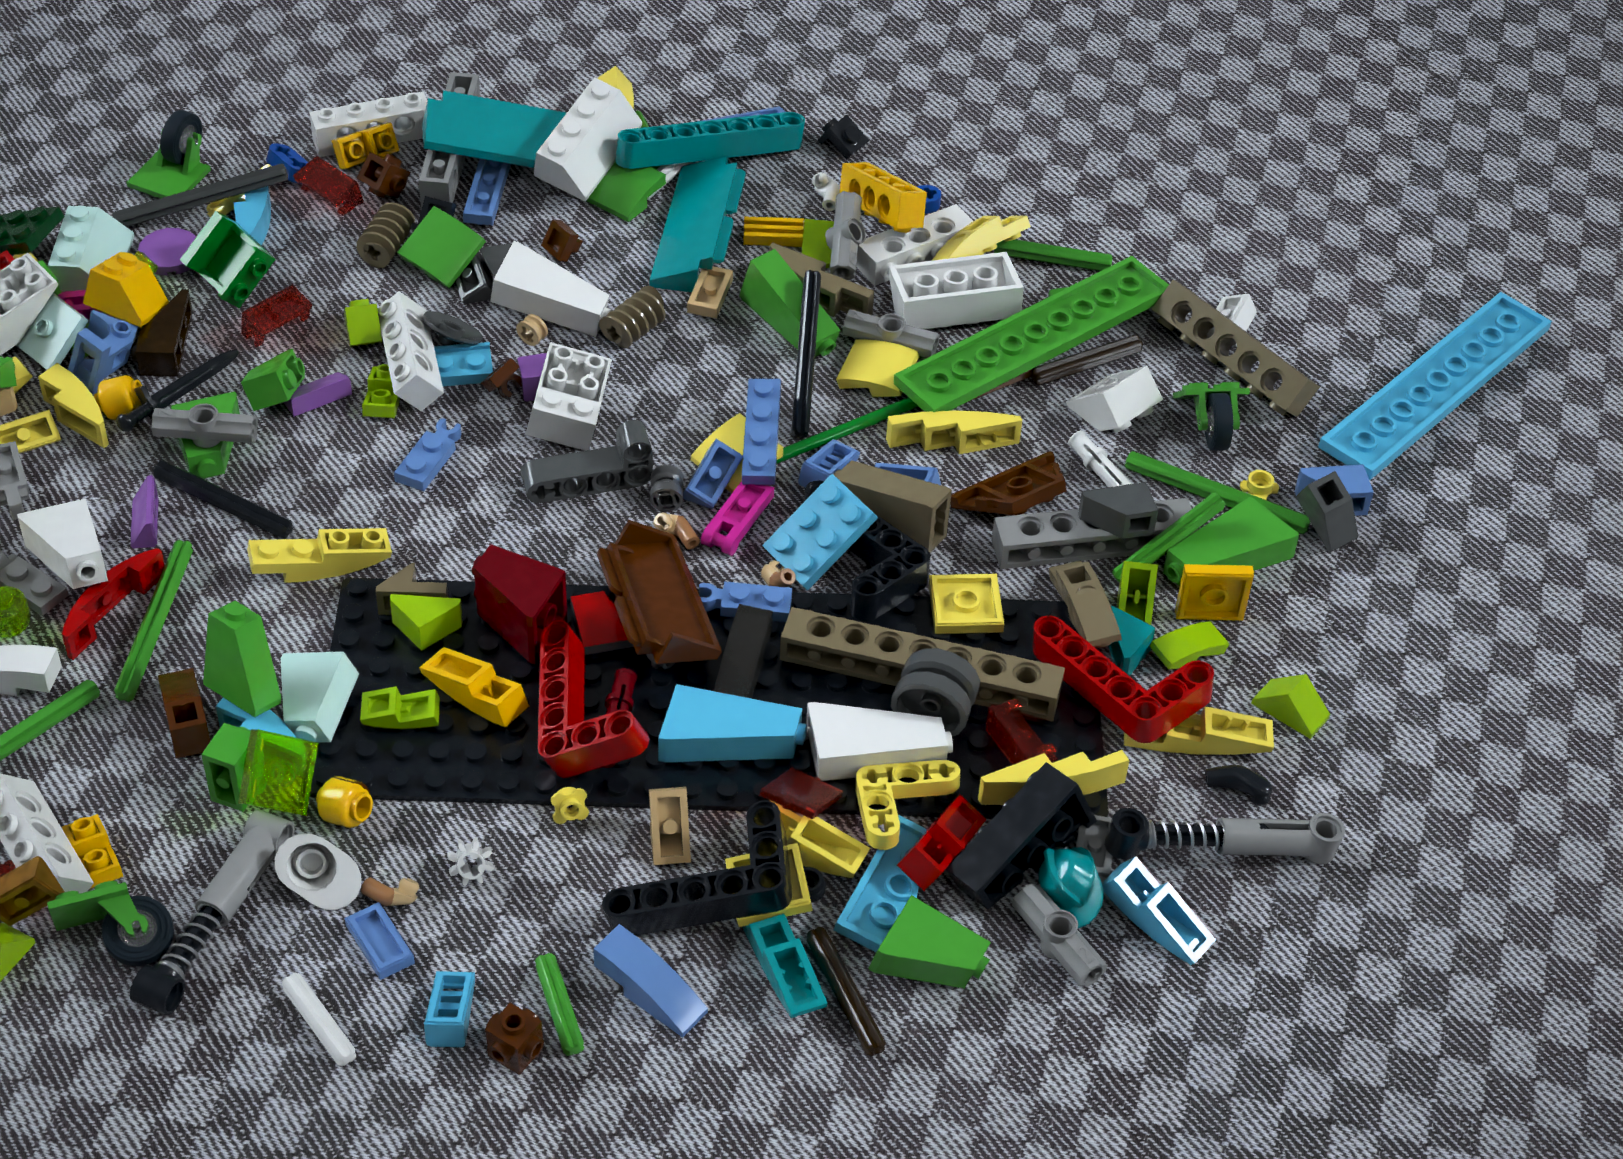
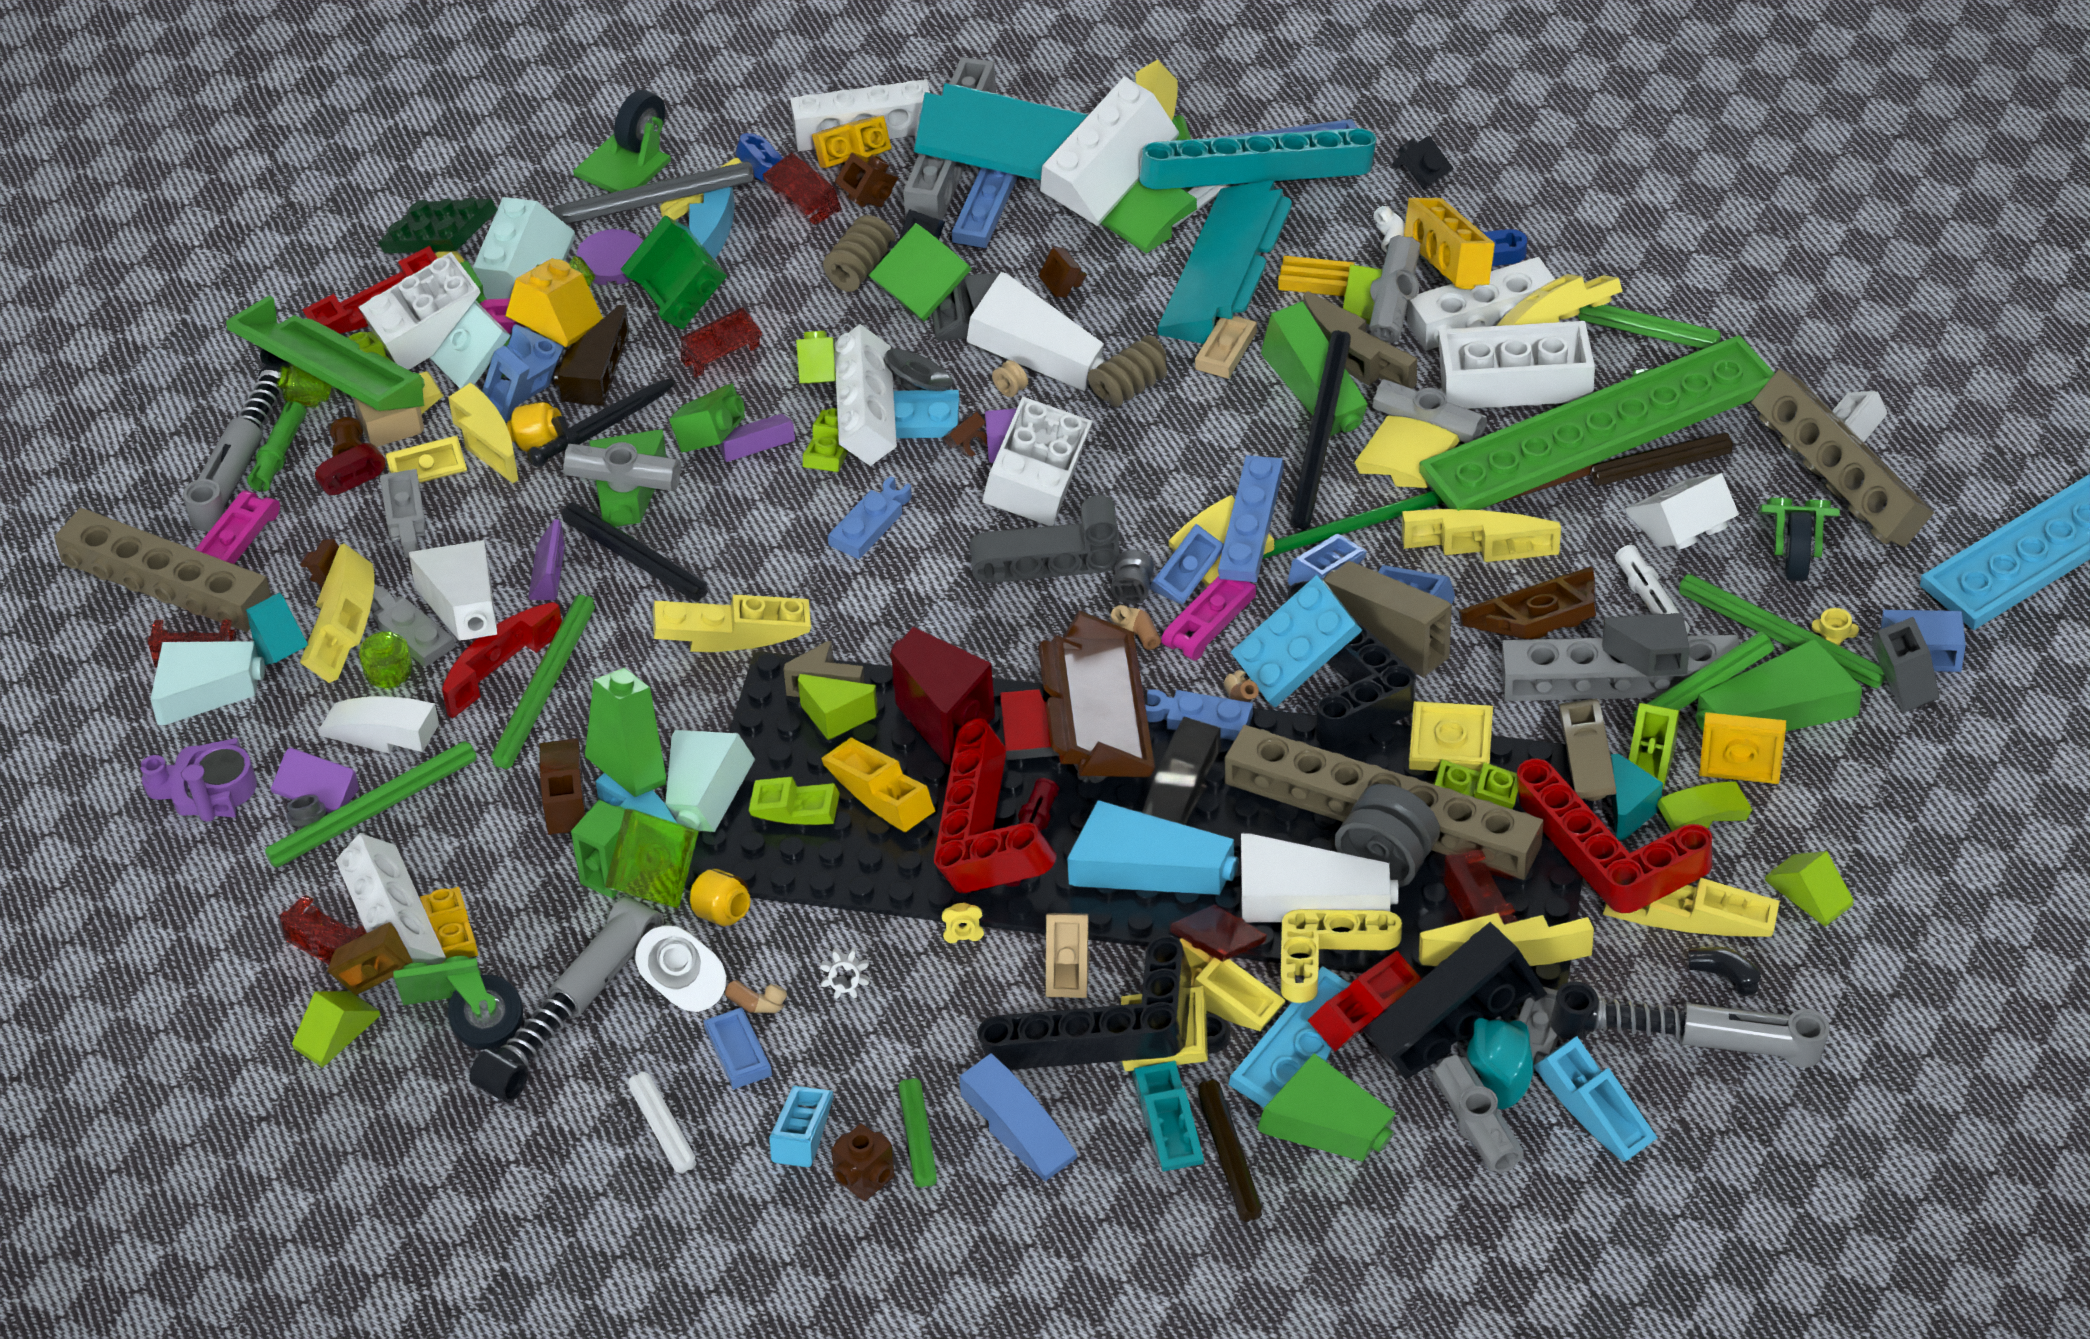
camera: 15 degrees right, 0 degrees up
(1006, 640) = (1489, 784): none -> lime slope

